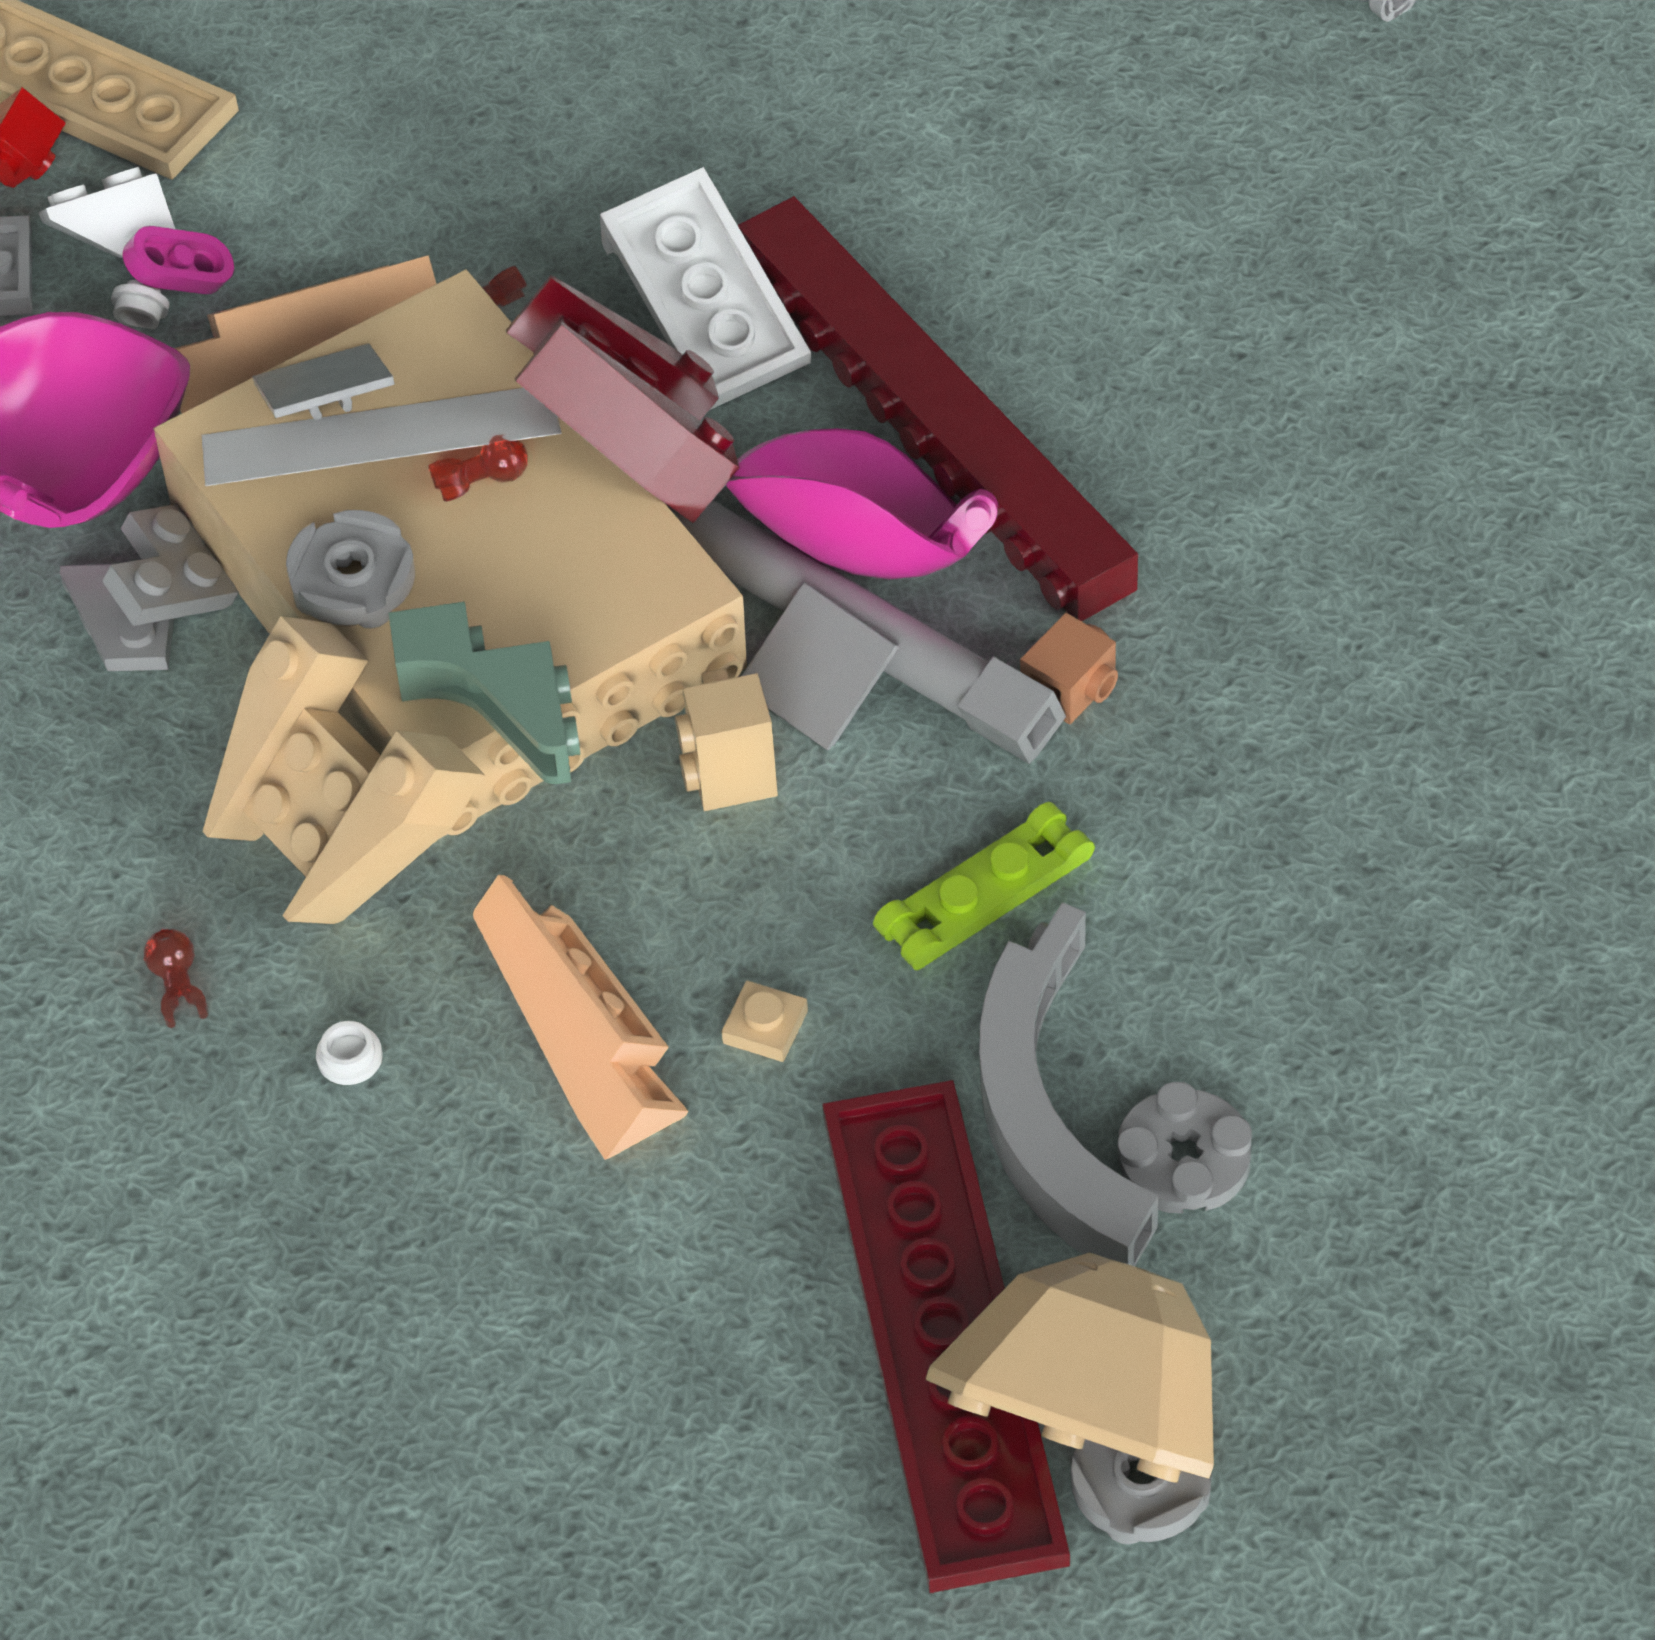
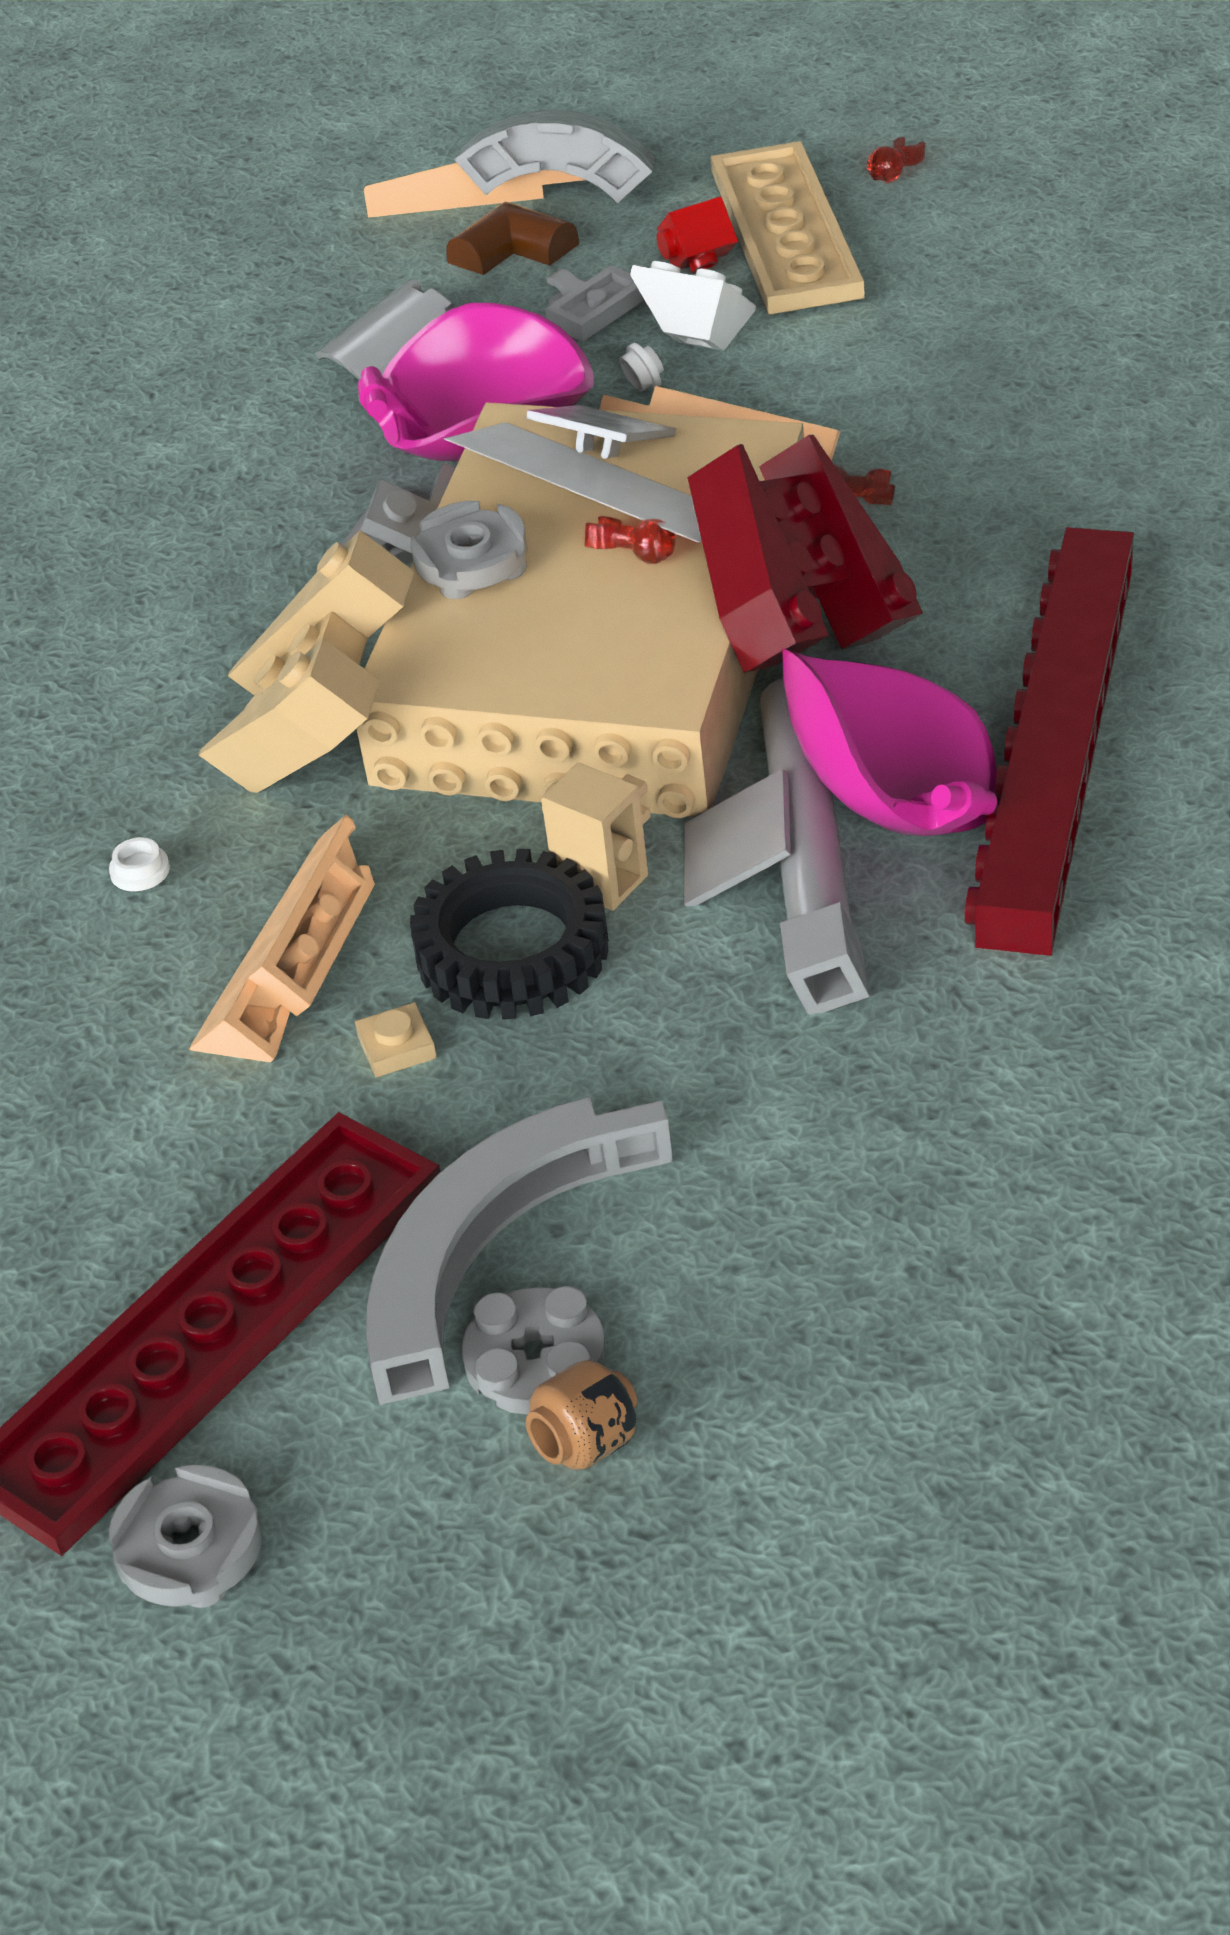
camera: 50 degrees right, 10 degrees down
(171, 962) = (127, 737): clear red arm -> none
(178, 260) = (691, 348): dark pink plate -> none
(509, 686) = (457, 676): sand green arch -> none
(705, 284) = (992, 555): white plate -> none
(744, 811) = (513, 982): none -> black tyre
(984, 887) = (655, 1065): lime plate -> none
(1074, 663) = (911, 962): nougat brick -> none
(1093, 1358) = (217, 1412): tan brick -> none
(1293, 1161) = (581, 1415): none -> medium nougat head

